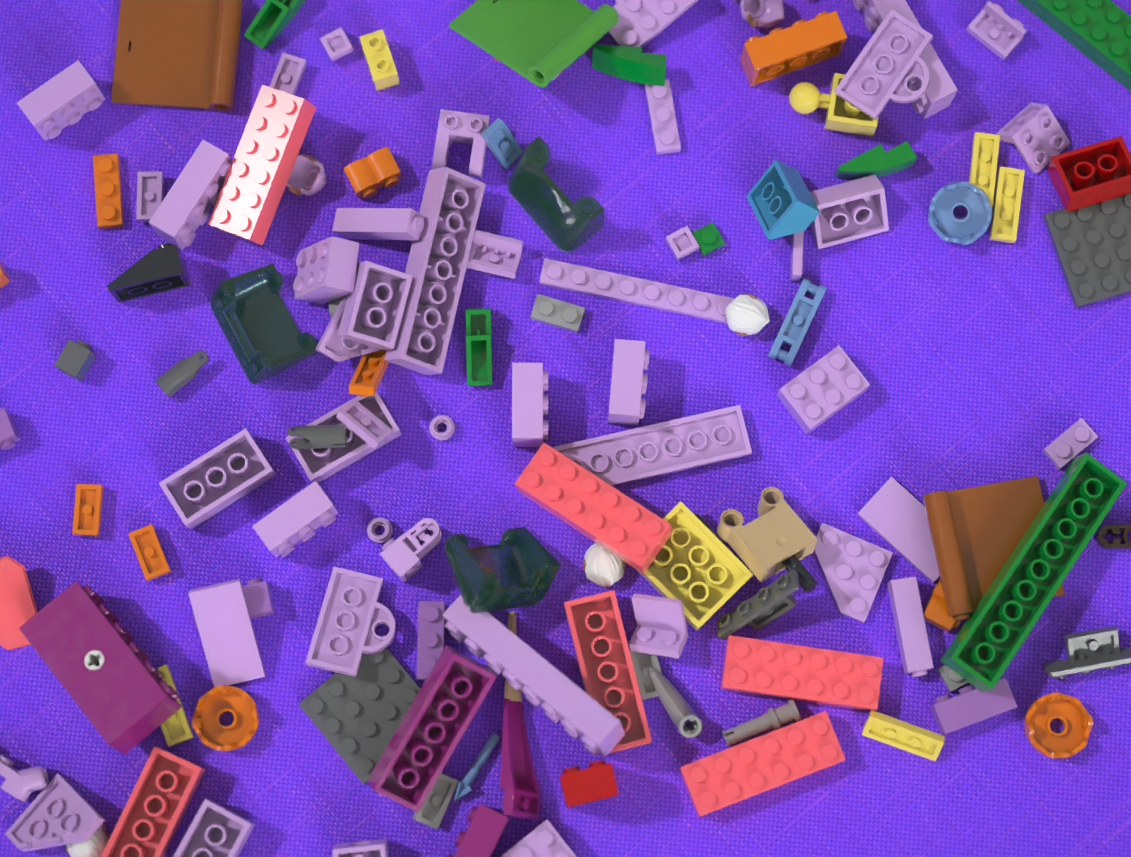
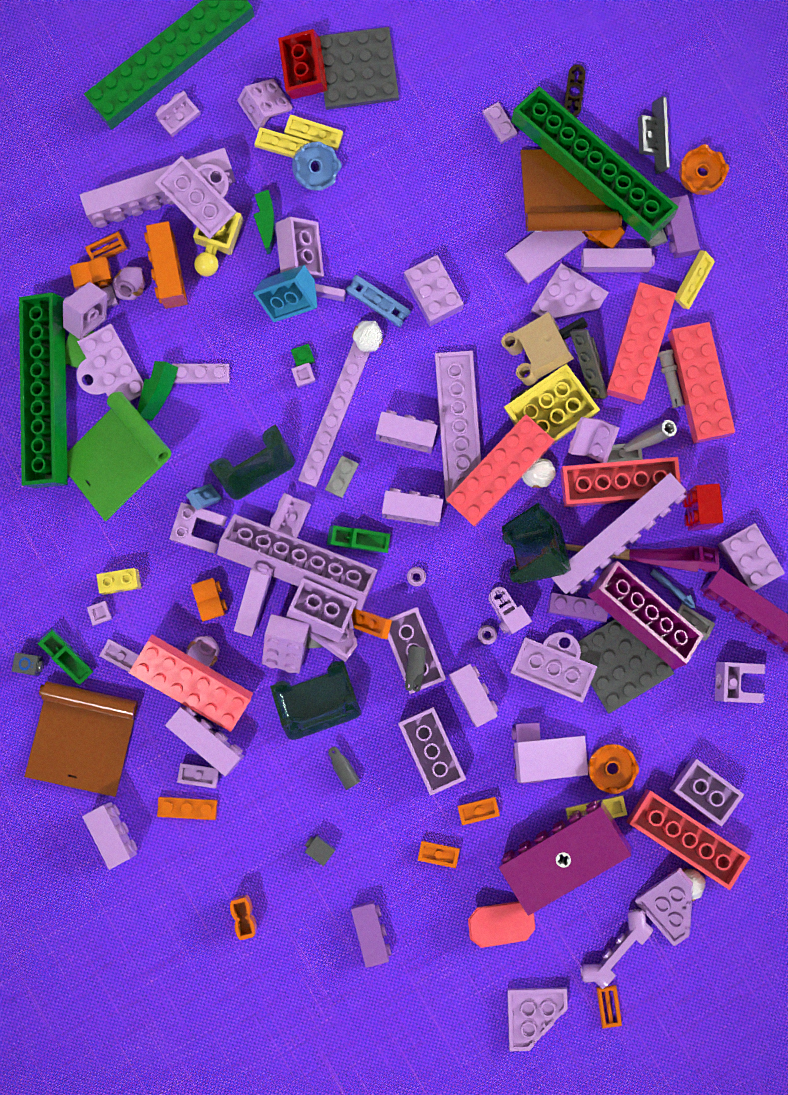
camera: 80 degrees left, 5 degrees up
(153, 274) = (262, 776): black slope -> none
(364, 423) = (410, 631): lavender plate -> none

